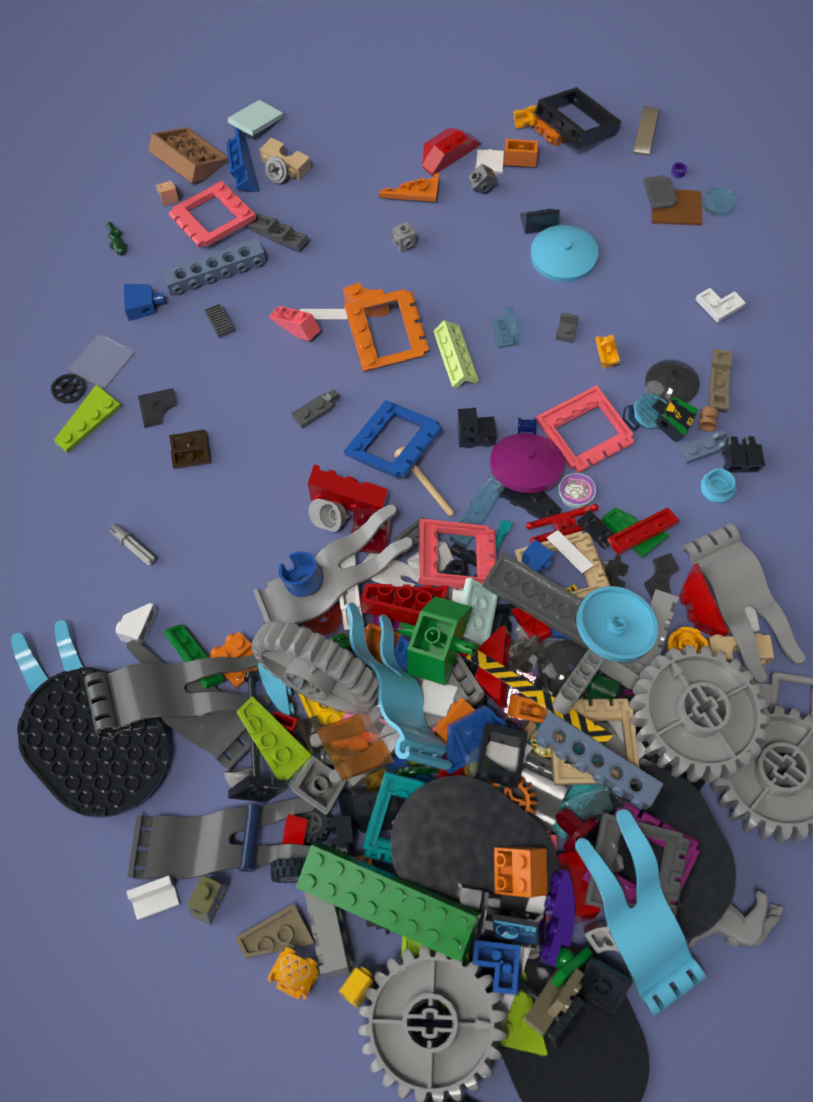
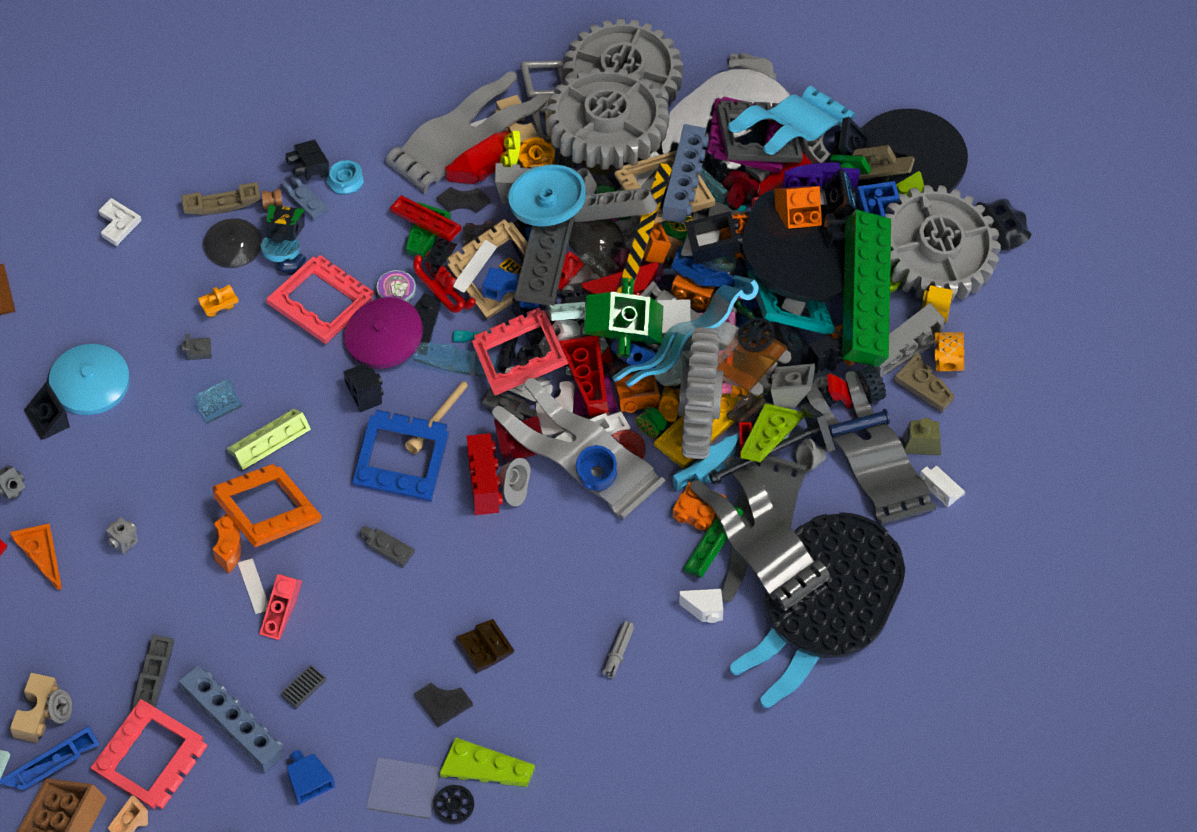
camera: 115 degrees left, 5 degrees down
(372, 758) = (756, 334): none -> black wheel
(530, 425) = (337, 347): clear blue bush -> none
(692, 621) = (512, 145): none -> neon yellow slope

